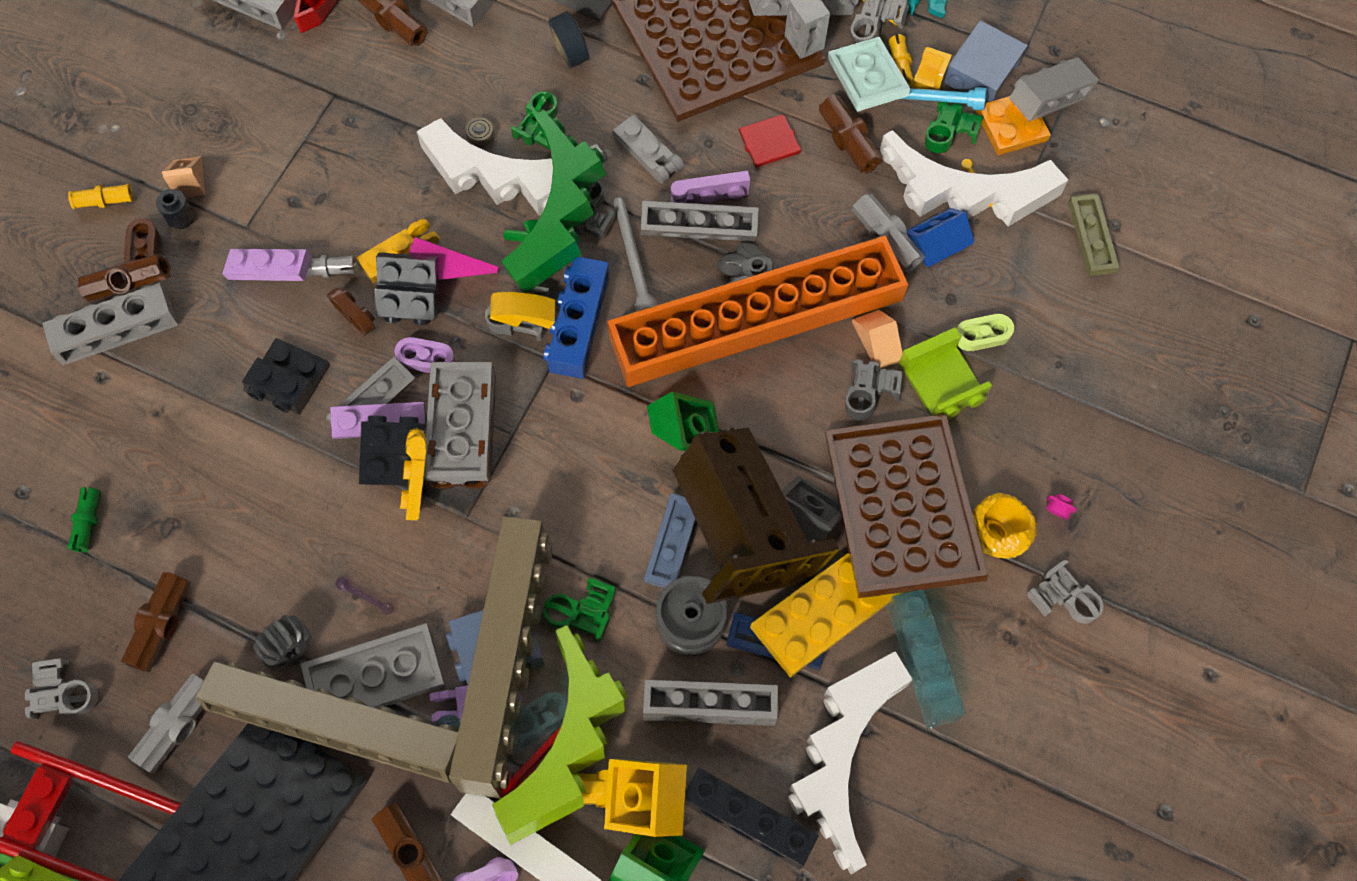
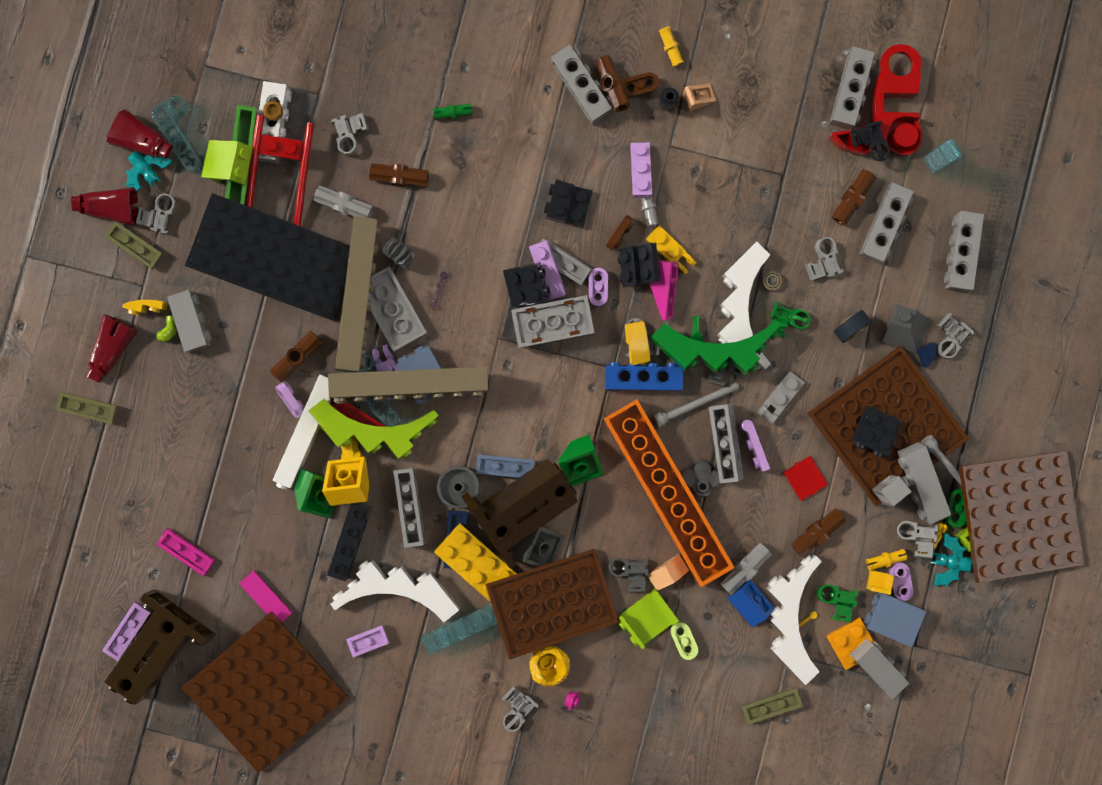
camera: 80 degrees right, 20 degrees up
(414, 472) = (512, 303): yellow hinge -> none
(476, 60) = (828, 264): none -> light grey piece
(589, 613) = (452, 426): green piece -> none
(722, 37) = (876, 432): none -> black plate
(868, 74) = (867, 538): light aqua plate -> none
(917, 46) = (901, 582): none -> lavender plate
(927, 821) = (367, 640): none -> lavender plate
(973, 98) = (859, 614): medium azure piece -> none

